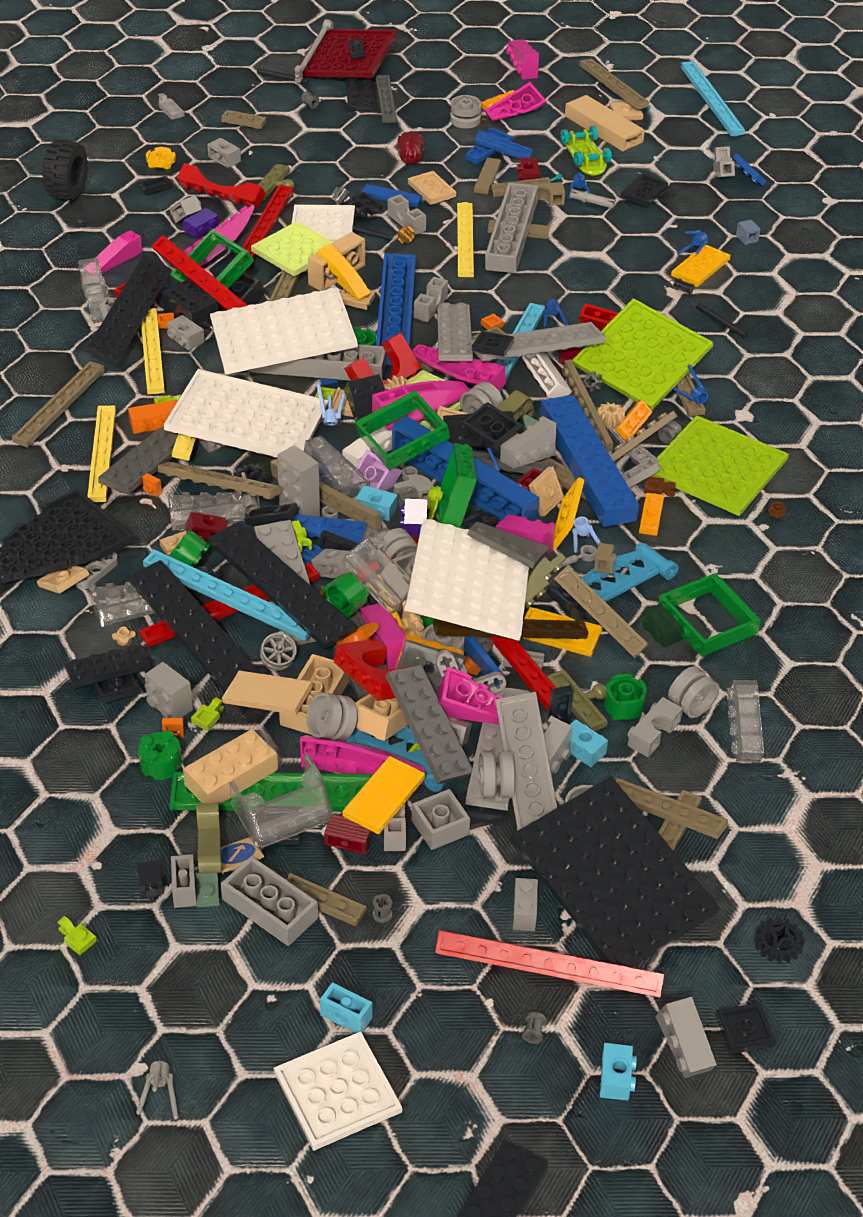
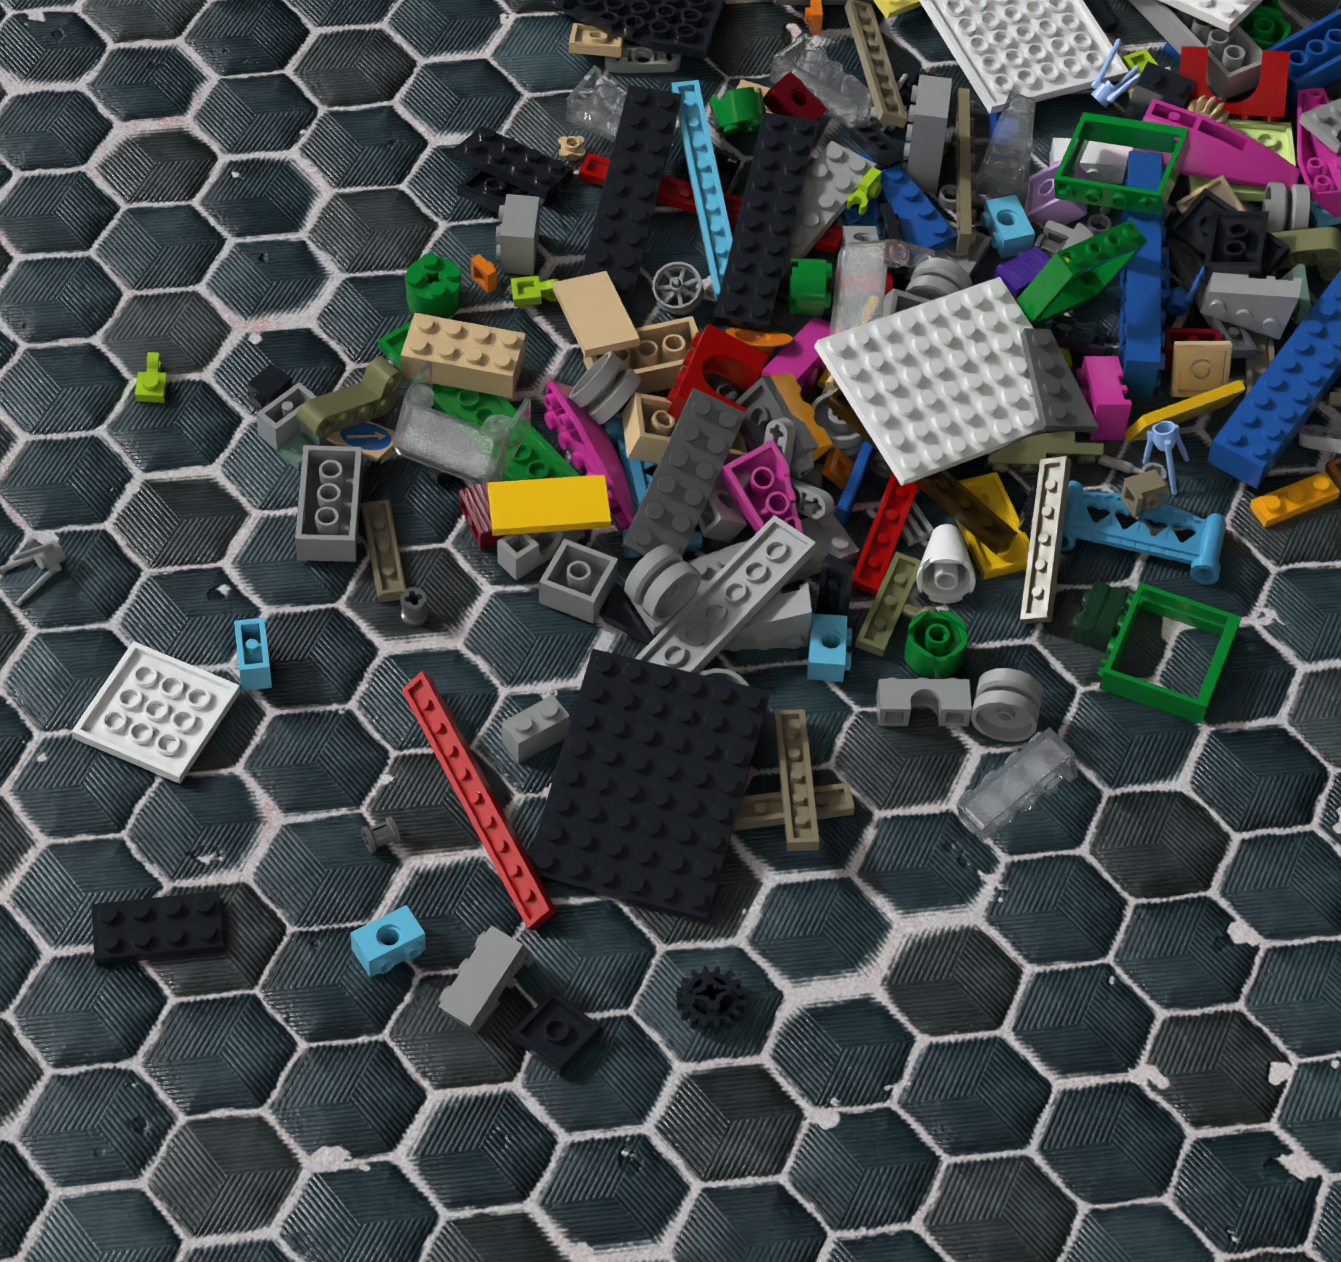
camera: 50 degrees right, 10 degrees up
(577, 660) = (946, 567): none -> white cone

